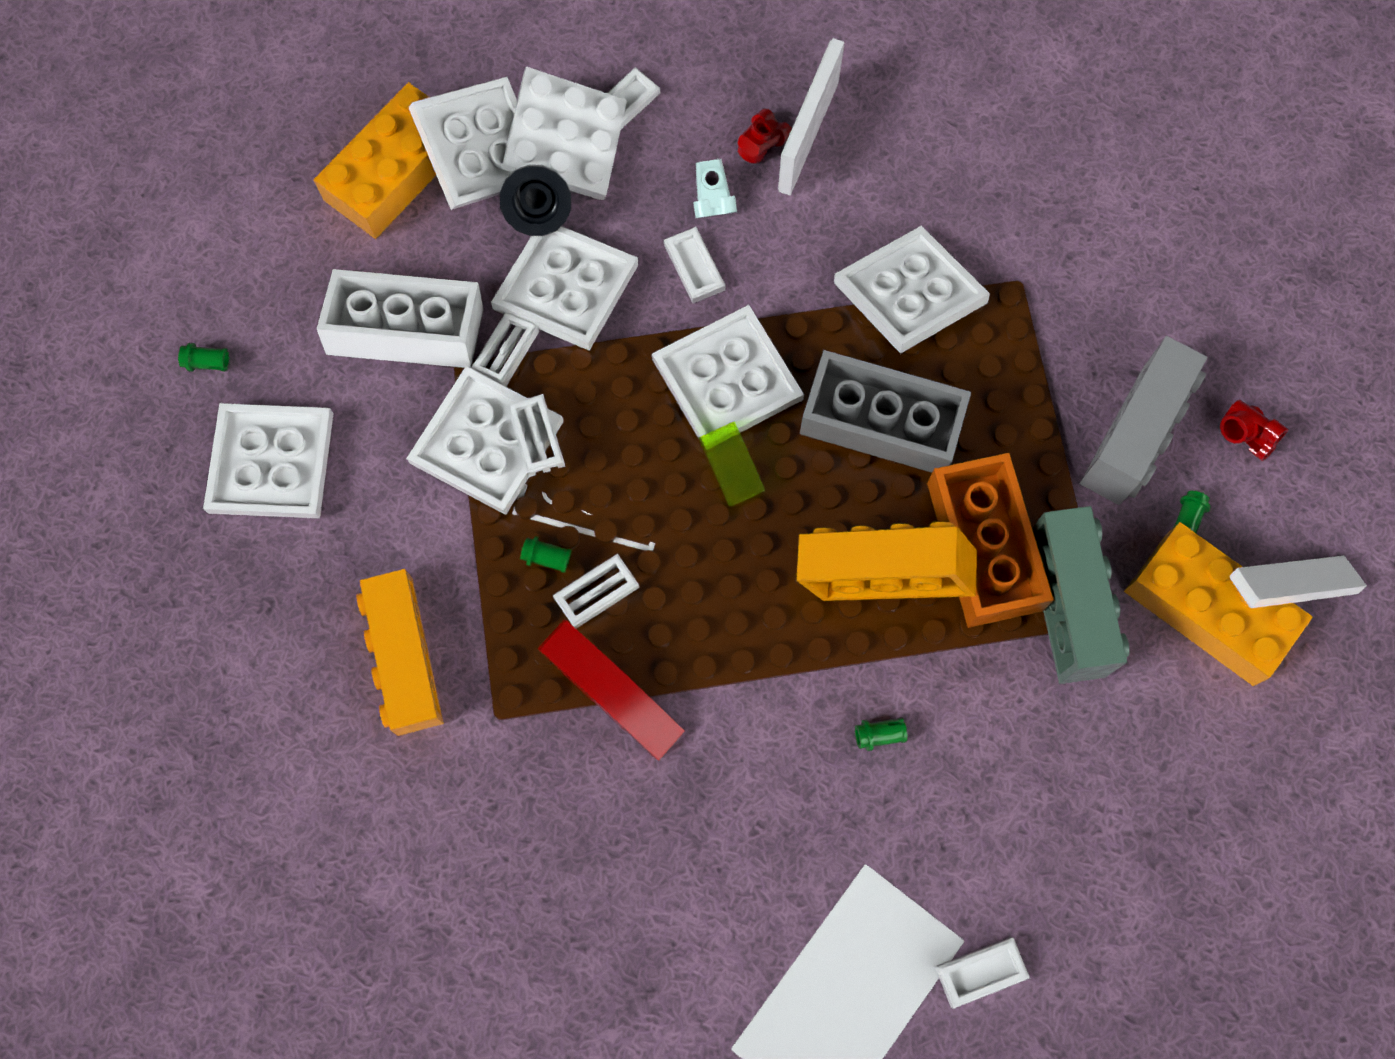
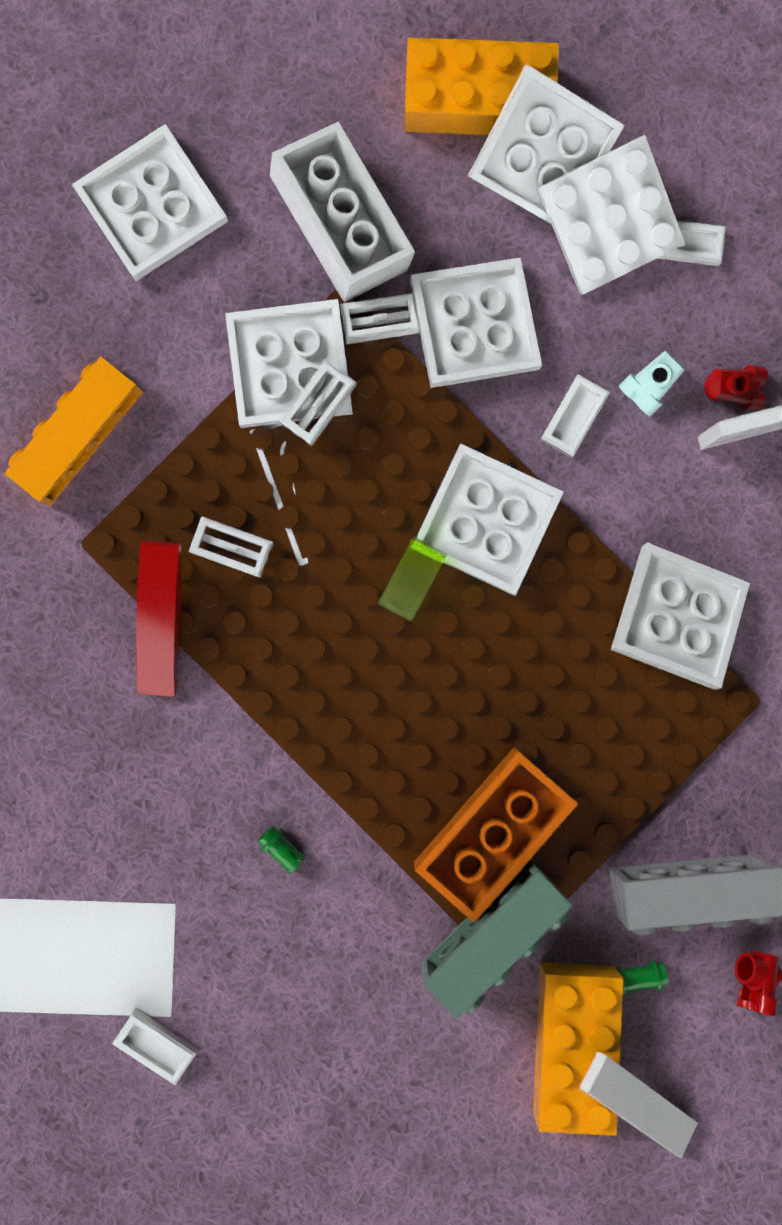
camera: 50 degrees right, 15 degrees up
(203, 358) = (189, 68): green pin -> none
(535, 200) = (526, 240): black piece -> none
(545, 554) = (229, 485): green pin -> none
(884, 412) = (546, 675): light grey brick -> none
(887, 563) = (408, 779): light orange brick -> none

